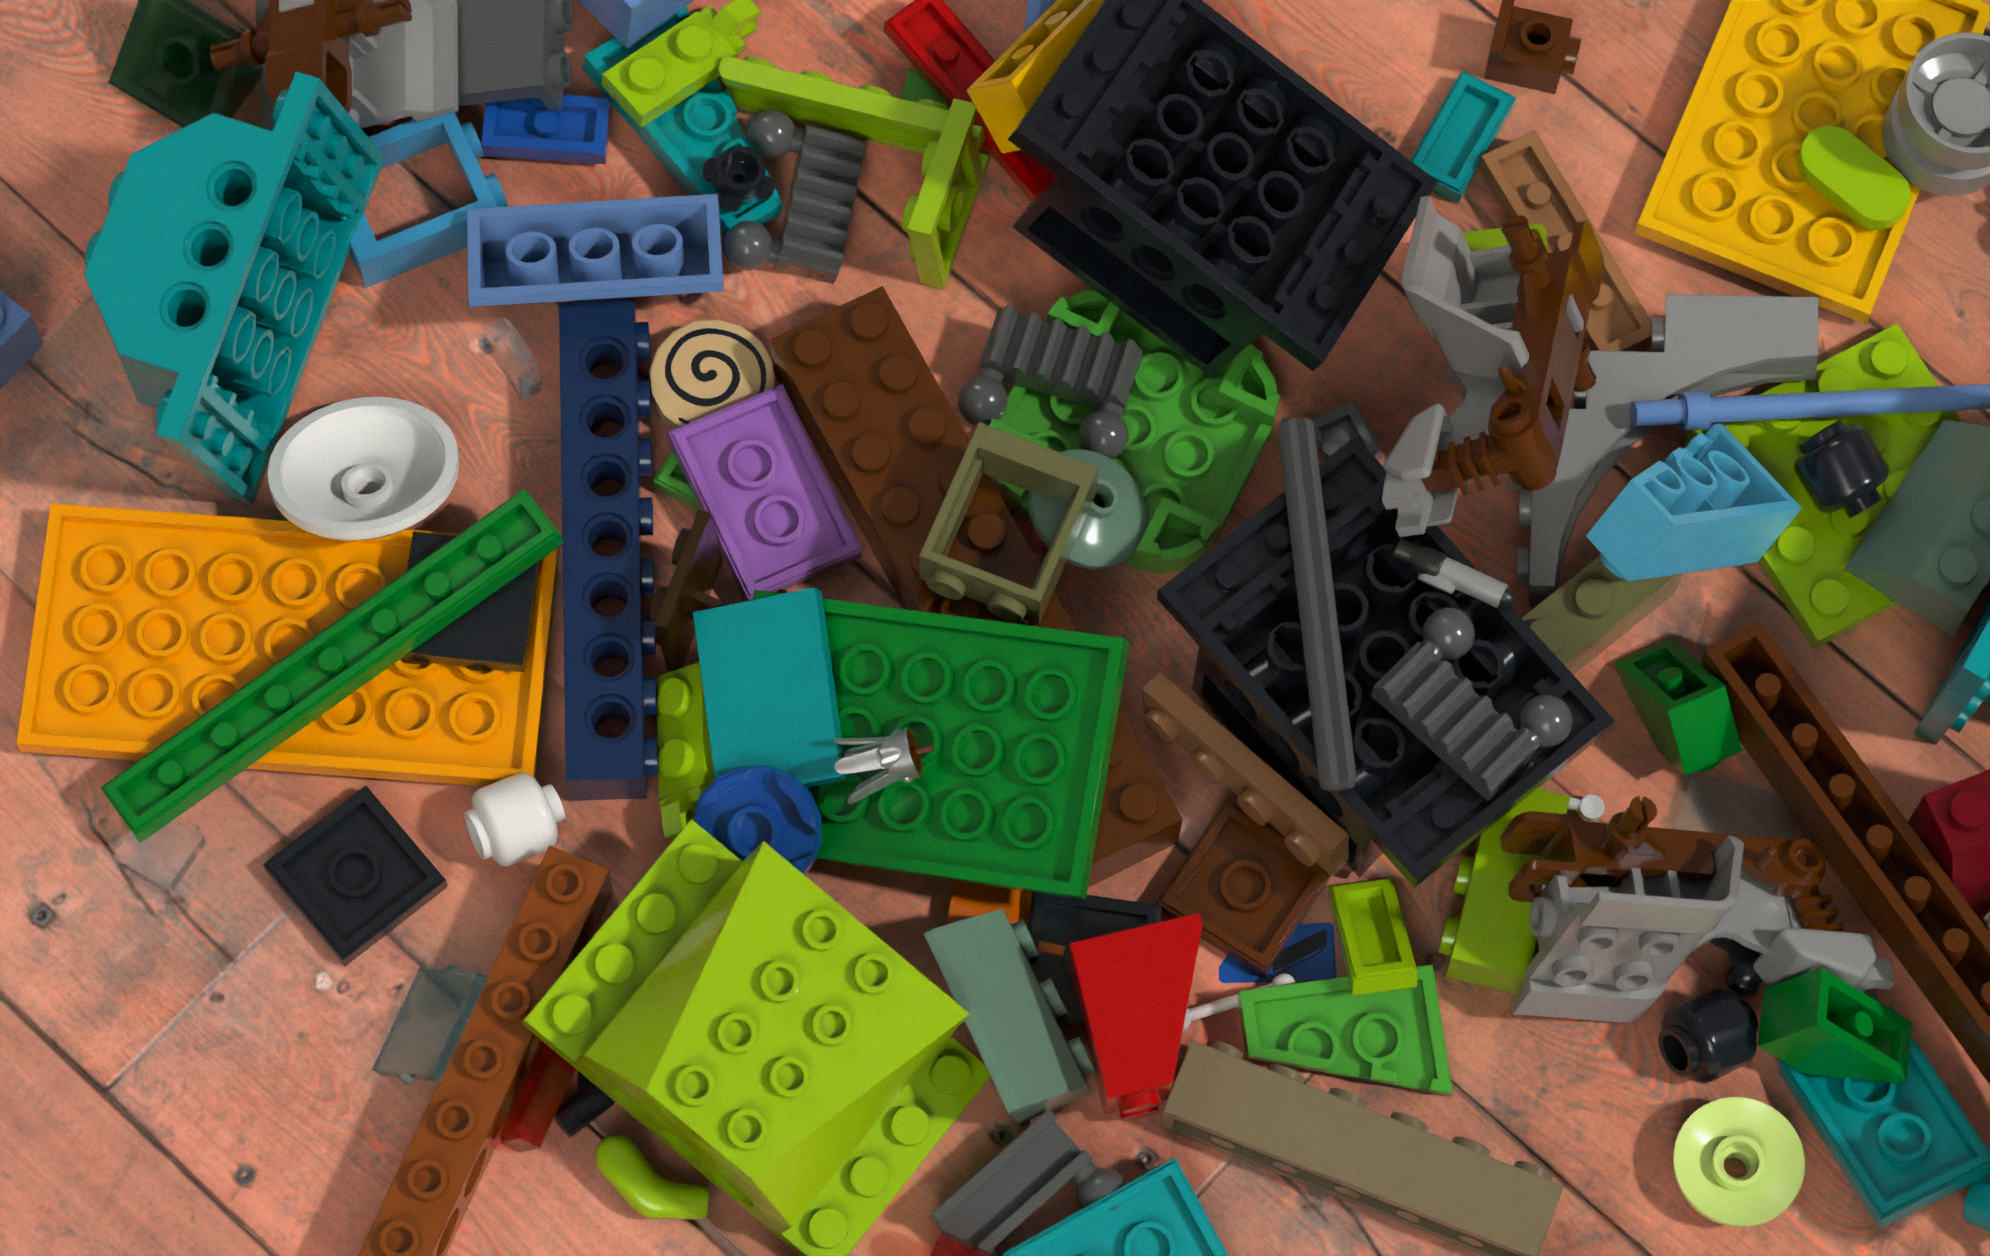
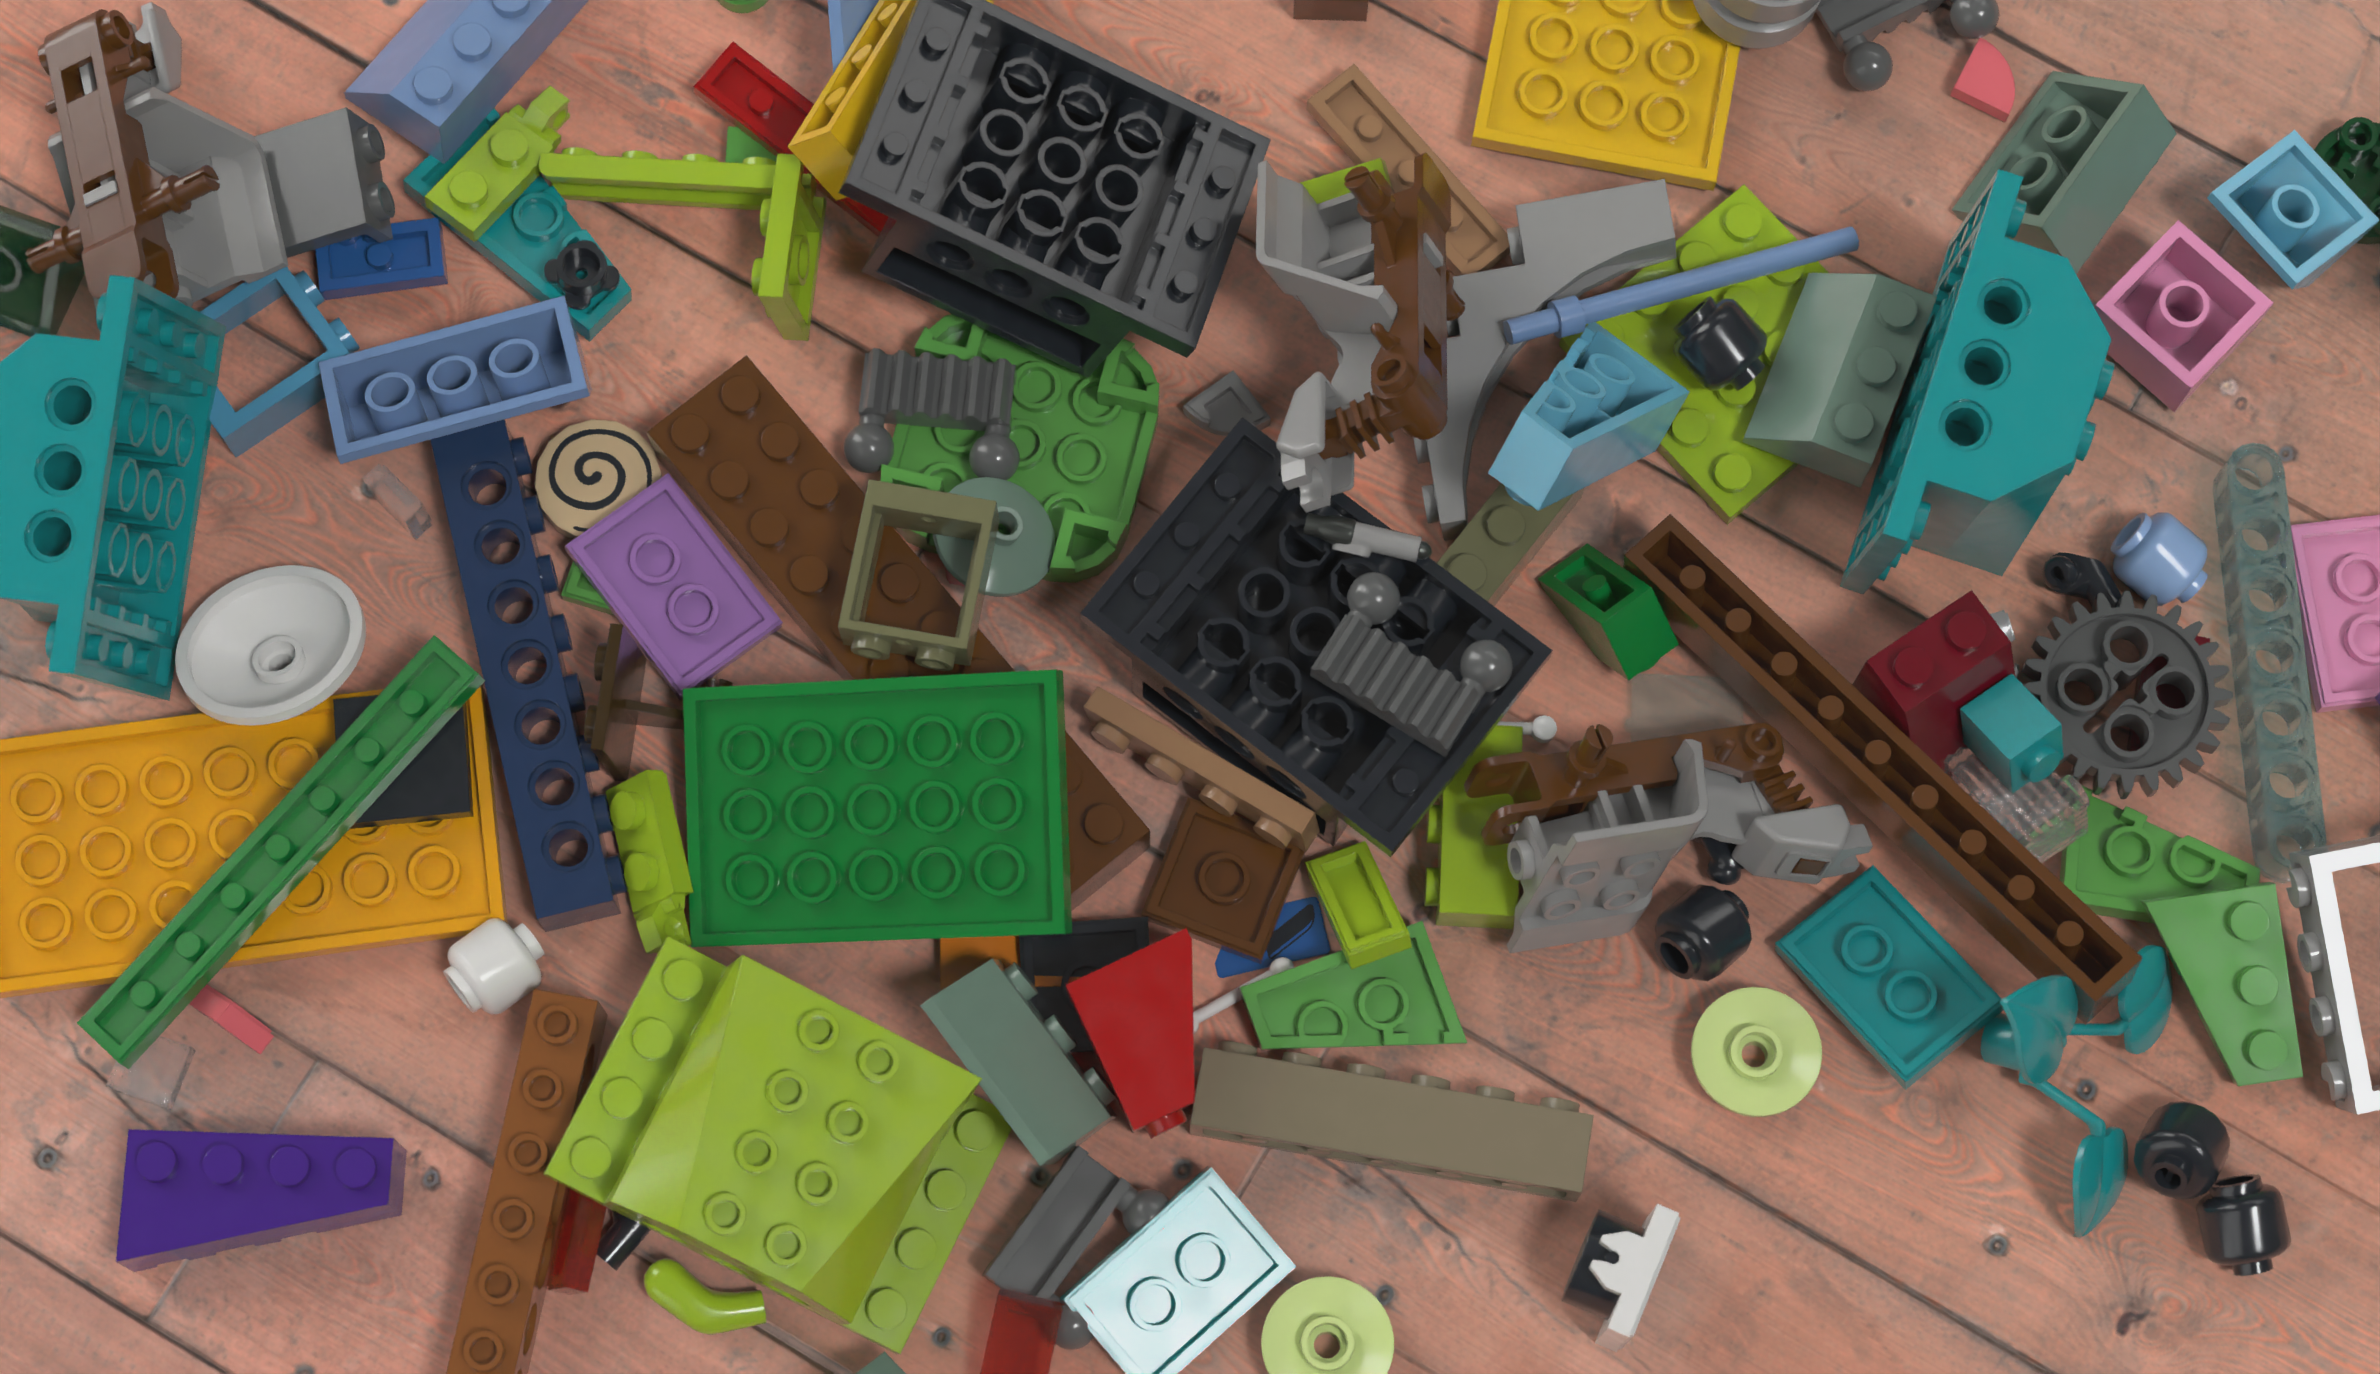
camera: 10 degrees left, 5 degrees up
(220, 979) = (234, 1190): none -> dark purple wedge
(249, 817) = (232, 1018): none -> coral tile
(355, 875) = (350, 1052): black tile -> none
(429, 1024) = (454, 1190): clear light blue piece -> none
(762, 806) = (736, 914): blue tile -> none
(770, 686) = (720, 792): teal tile -> none
(817, 201) = (665, 279): dark grey gear -> none
(895, 752) = (855, 832): flat silver piece -> none
(1317, 605) = (1239, 596): dark grey axle -> none
(1462, 134) = (1283, 81): teal tile -> none
(1833, 1029) = (1822, 904): green slope -> none
(1854, 177) = (1674, 48): lime tile -> none

